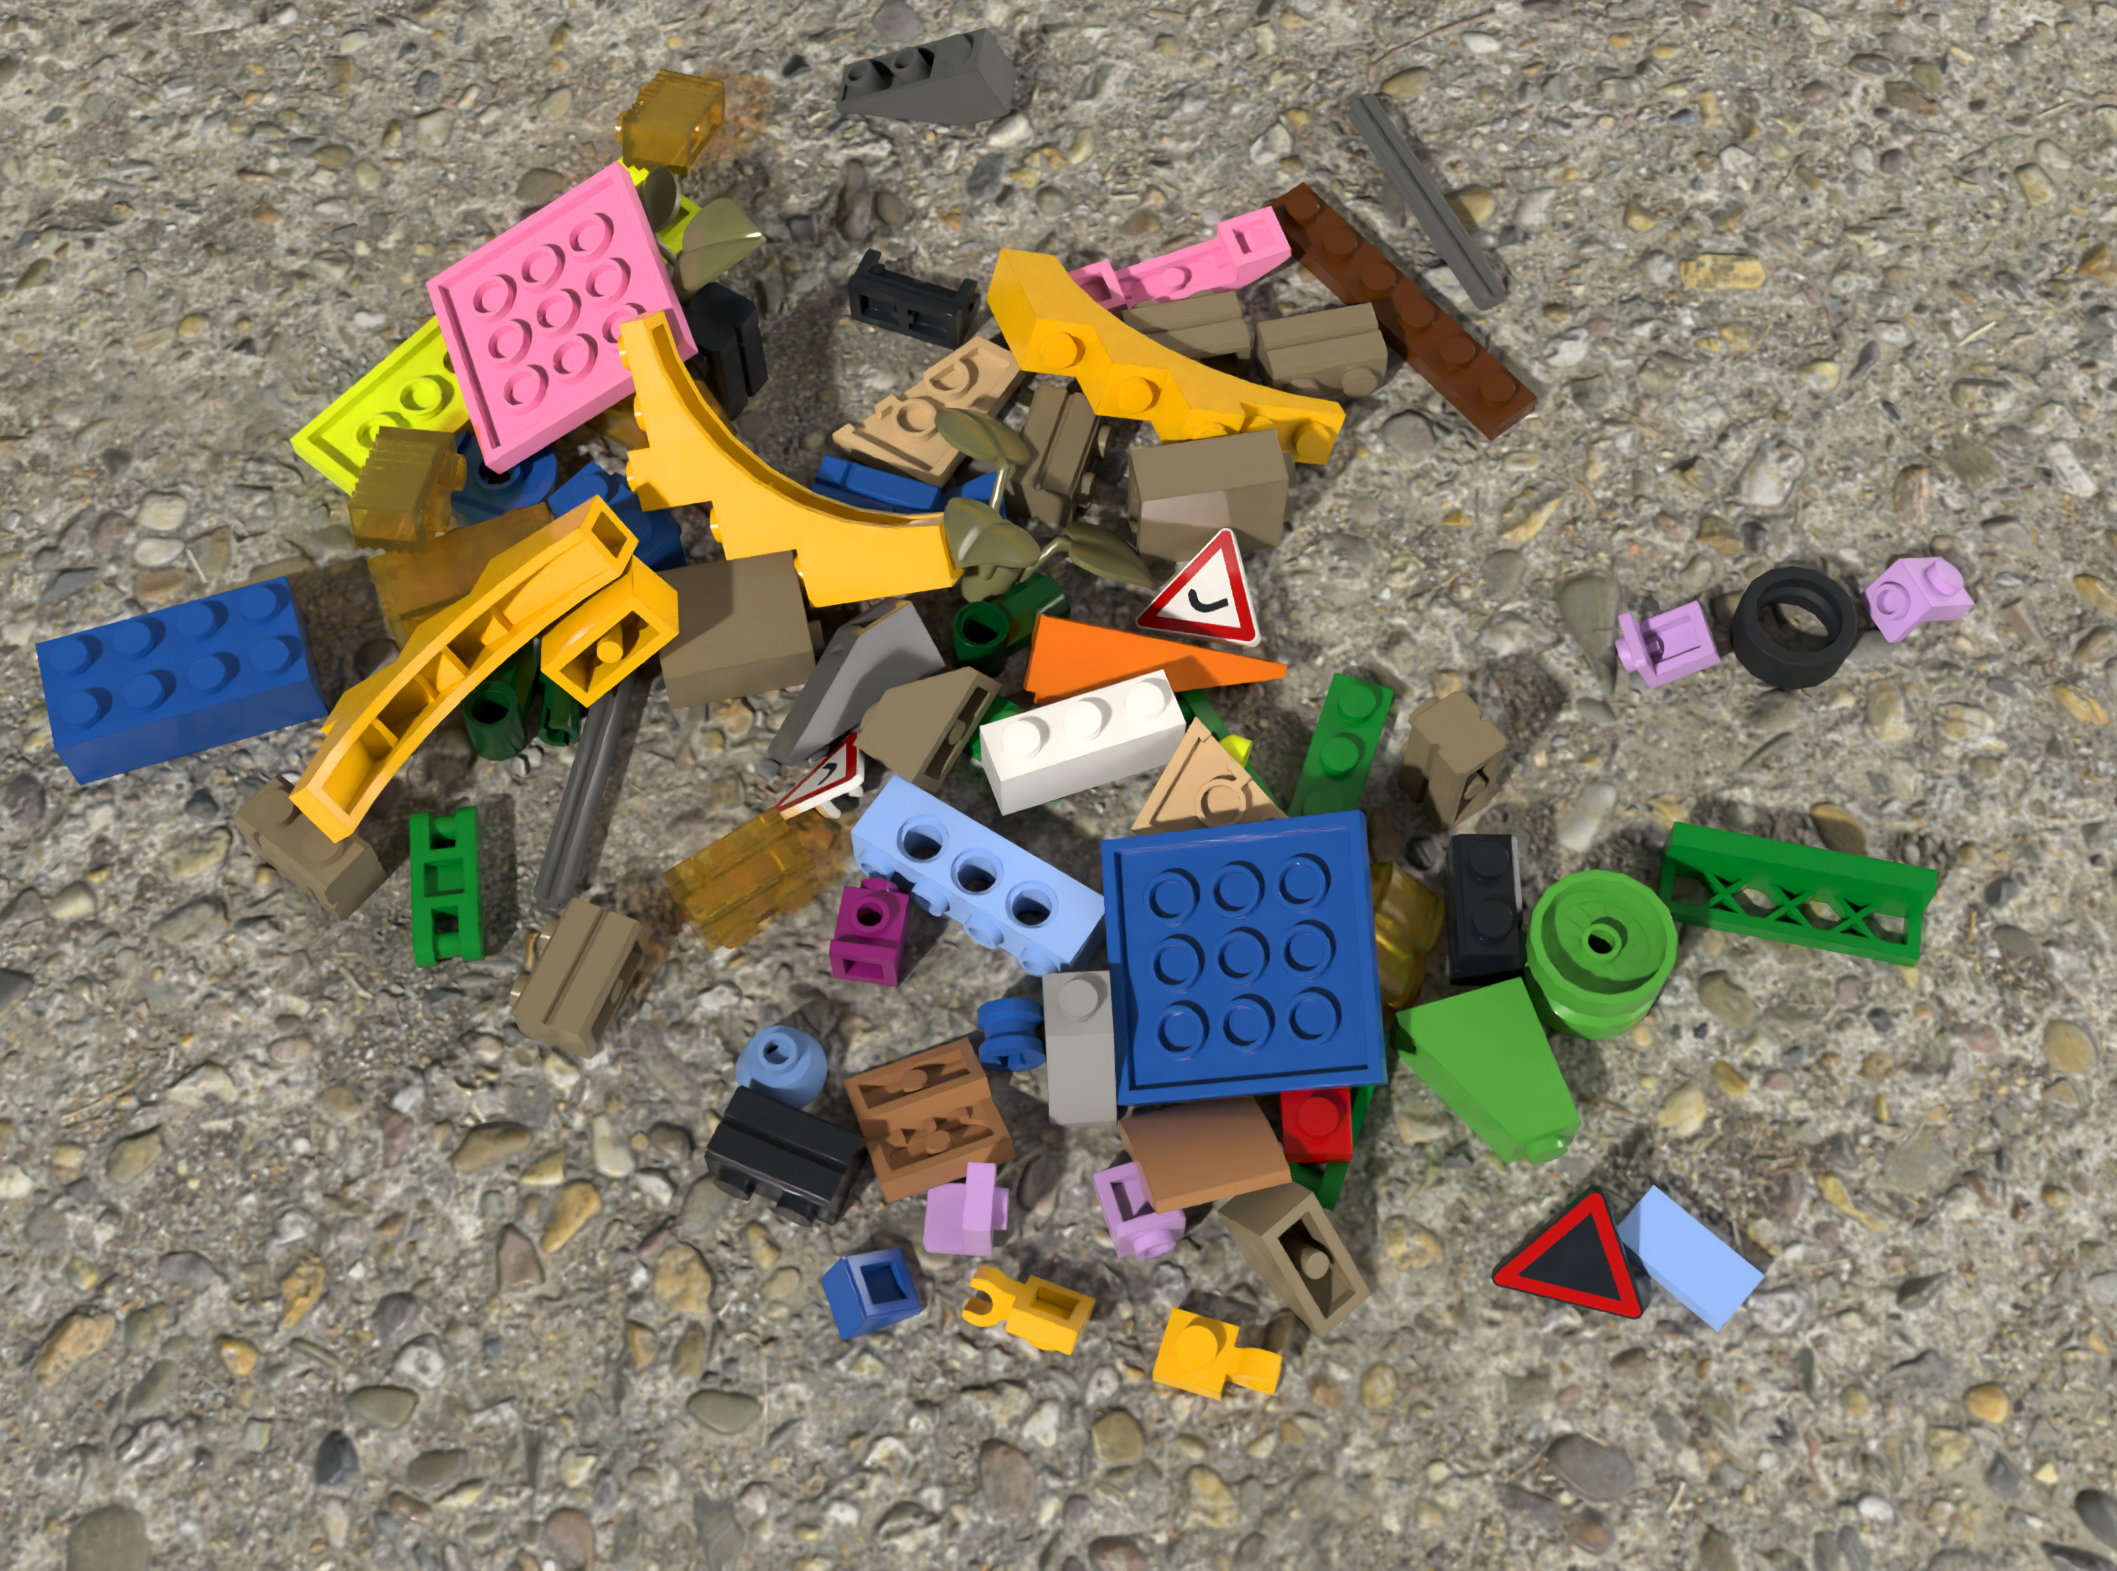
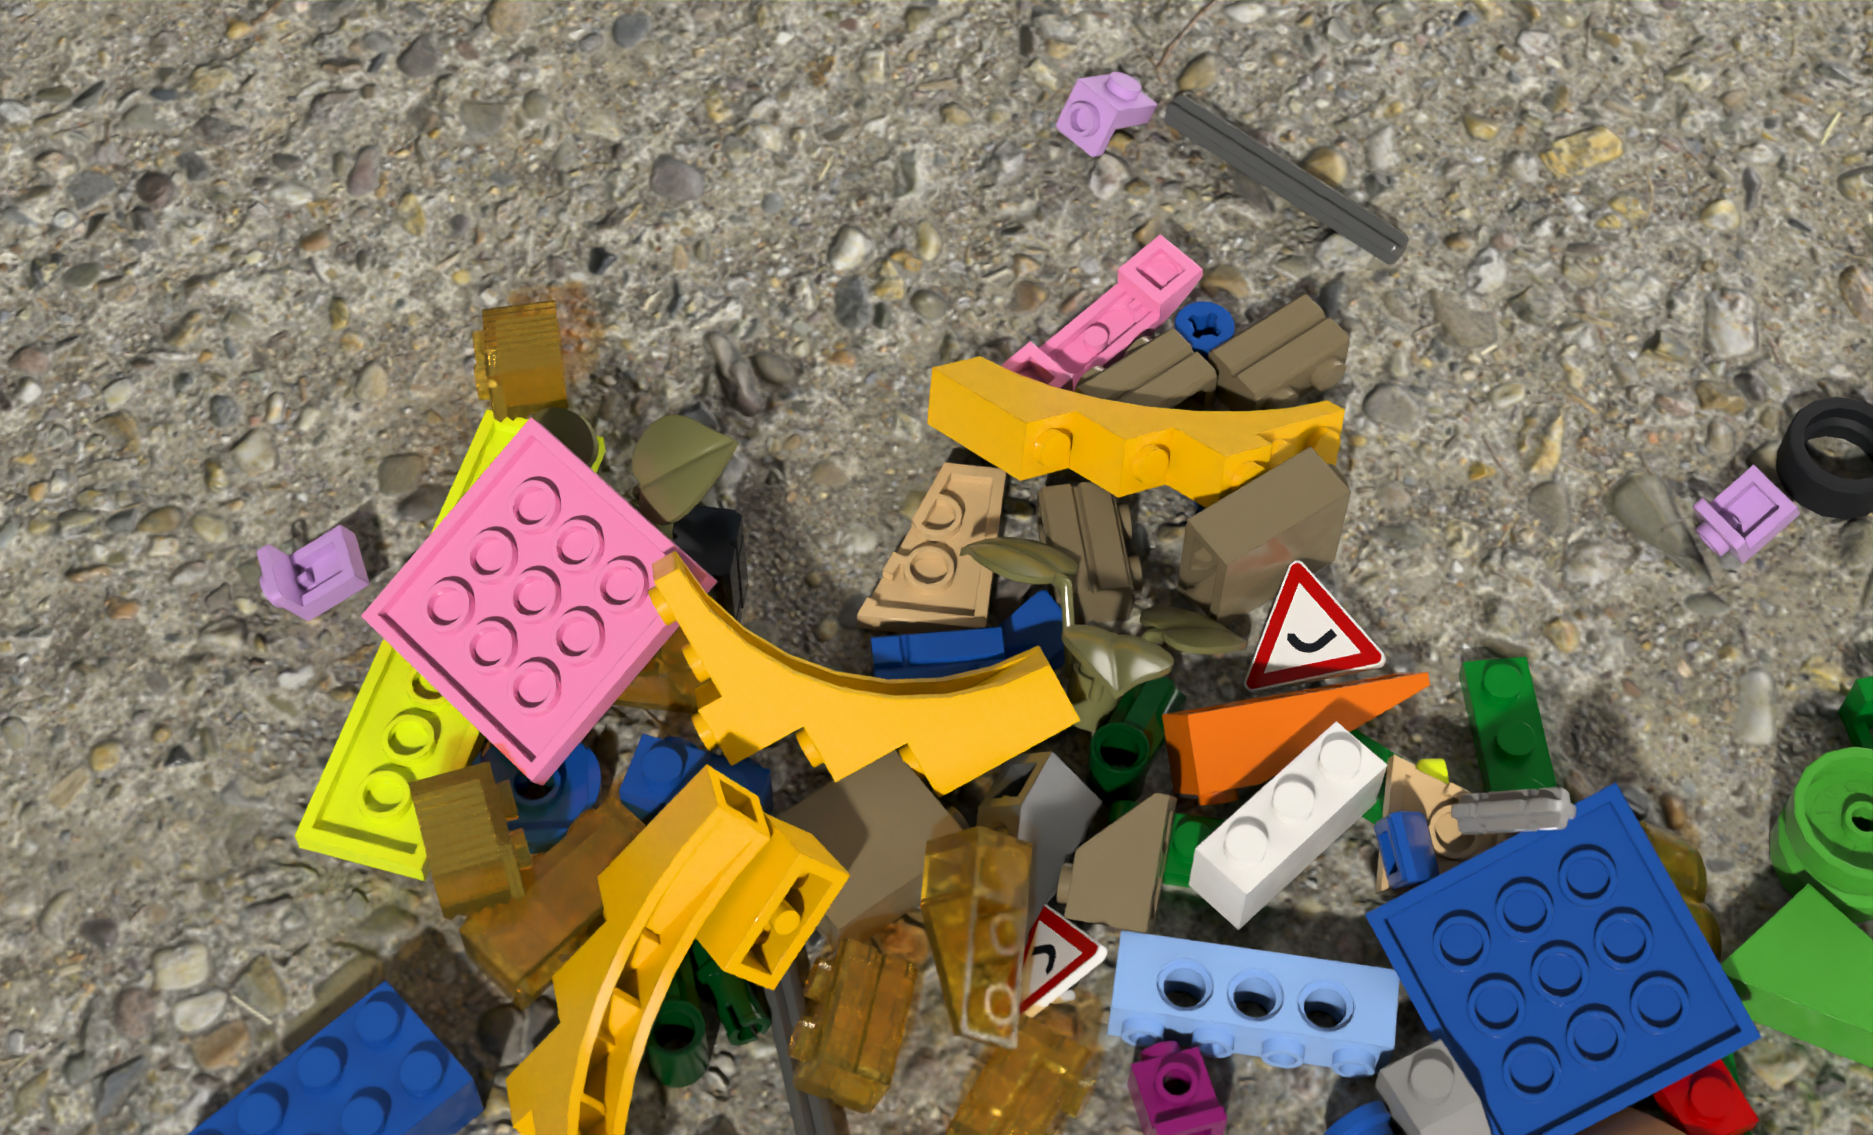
camera: 25 degrees left, 5 degrees down
(417, 241) = (314, 575): none -> lavender bracket
(637, 761) = (854, 1025): none -> clear yellow brick
(767, 725) = (977, 929): none -> clear yellow slope
(911, 304) = (858, 456): black hinge -> none
(935, 82) = (755, 229): dark grey slope -> none
(1165, 798) = (1406, 849): none -> blue slope
(1262, 296) = (1207, 320): none -> blue wheel
(1262, 800) = (1514, 811): none -> light grey axle
(1295, 78) = (1100, 107): none -> lavender bracket
(1404, 314) = (1360, 306): reddish brown plate -> none
(1450, 759) = (1626, 701): dark tan brick -> none
(1483, 909) = (1733, 831): black brick -> none

